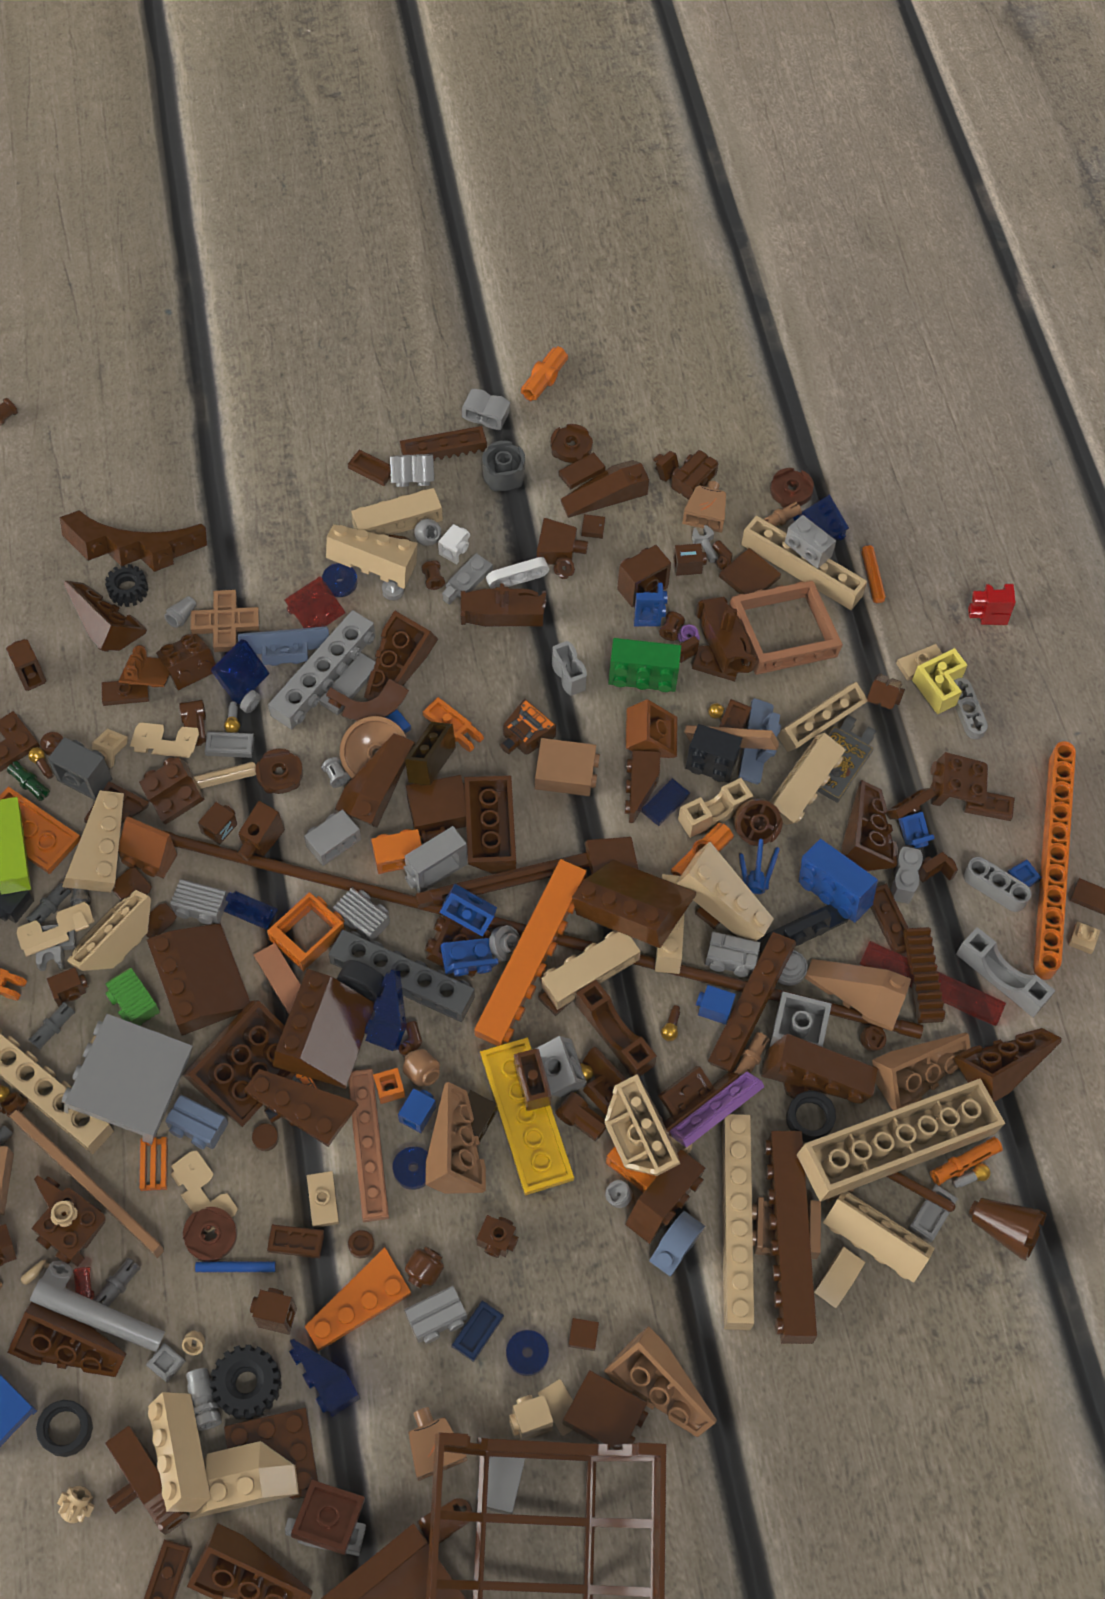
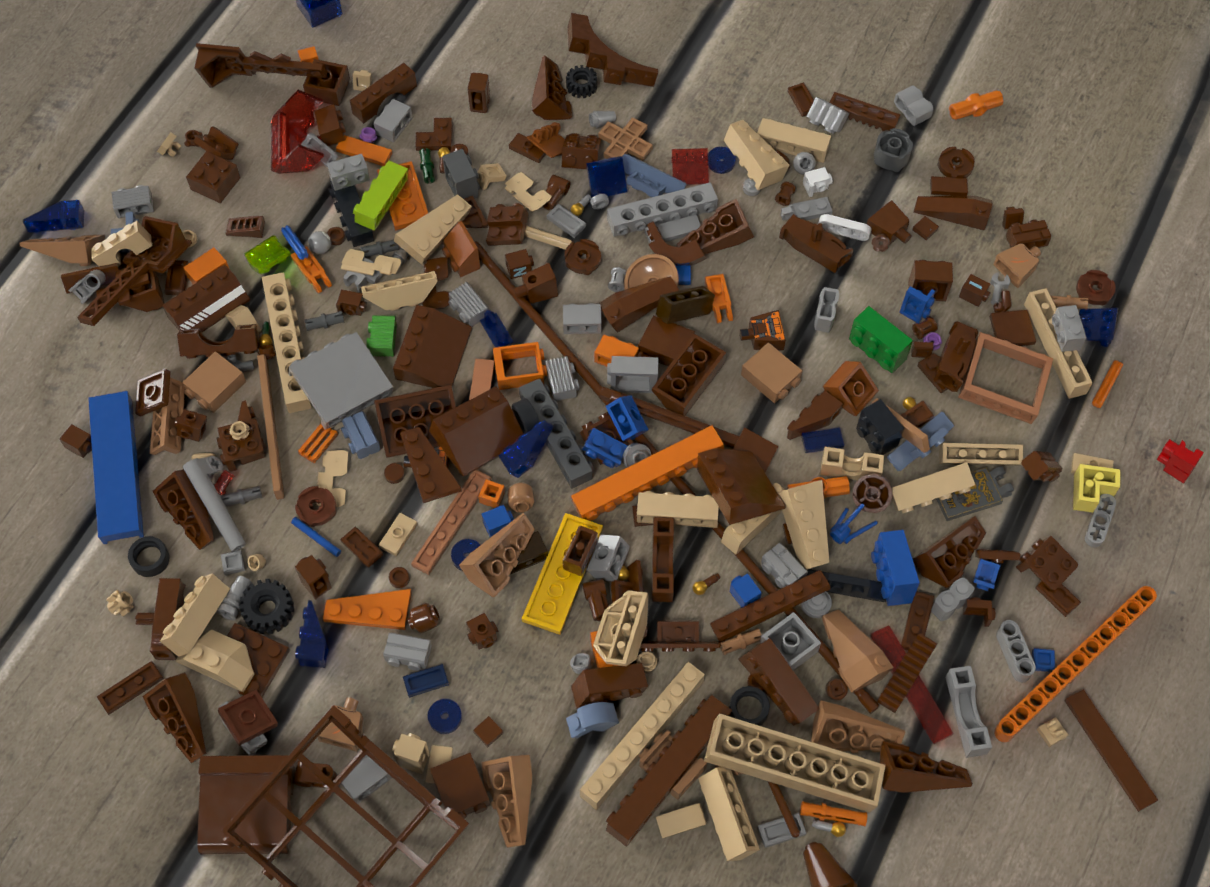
camera: 40 degrees right, 0 degrees up
(413, 1041) = (532, 477): reddish brown arm -> none
(716, 1109) = (685, 654): medium lavender tile -> none

